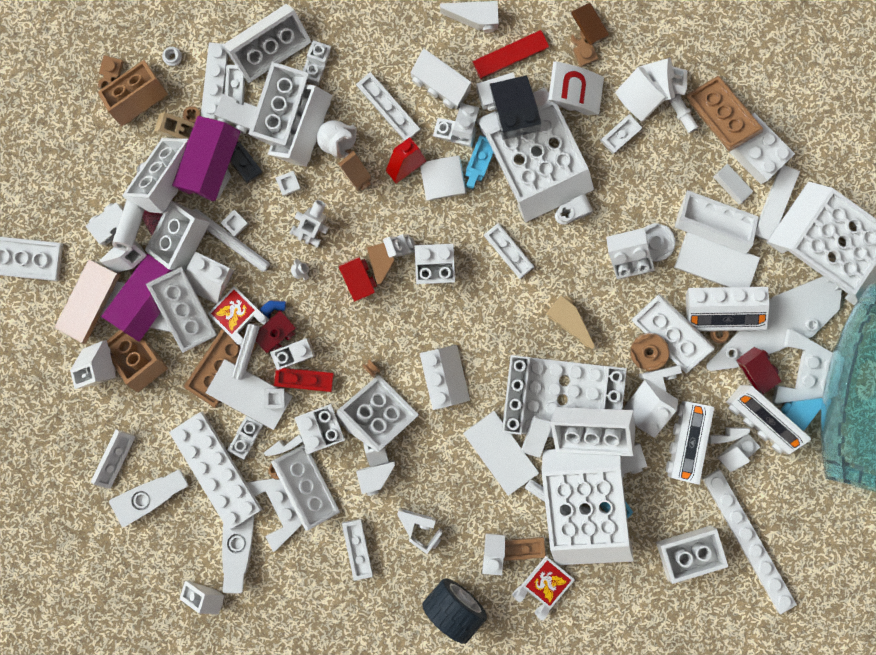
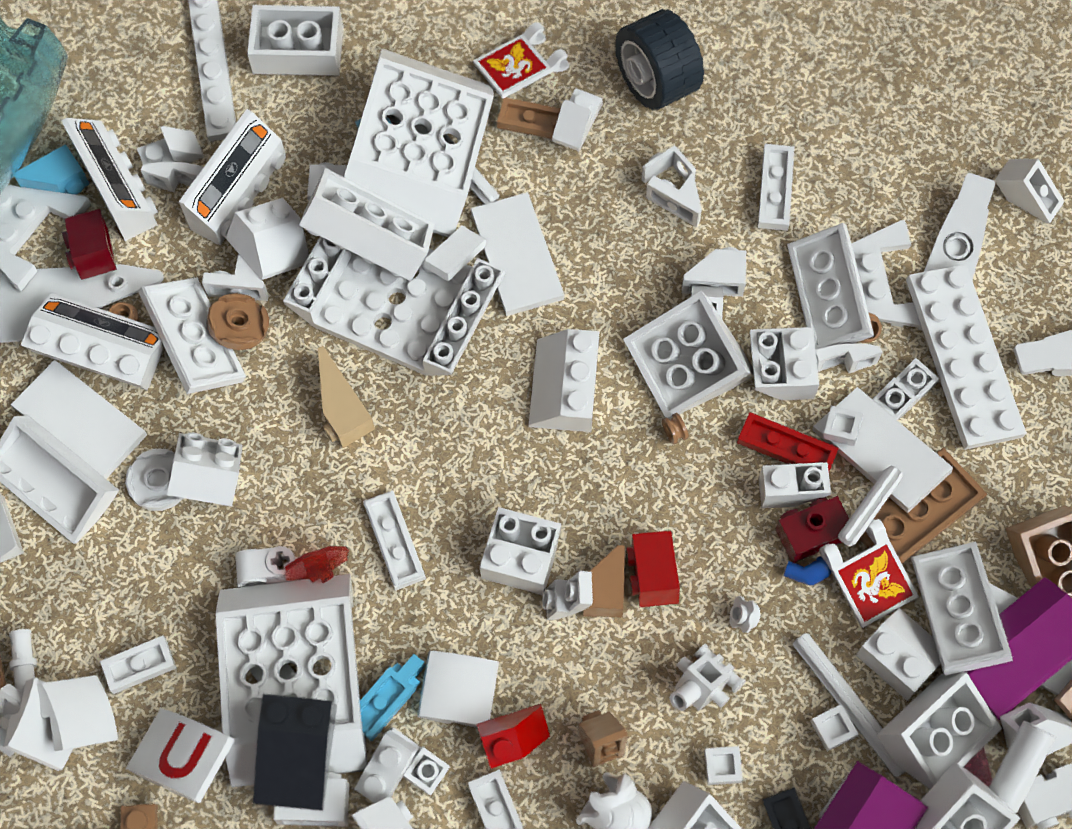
camera: 160 degrees left, 20 degrees down
(542, 214) = (317, 564): none -> clear red piece

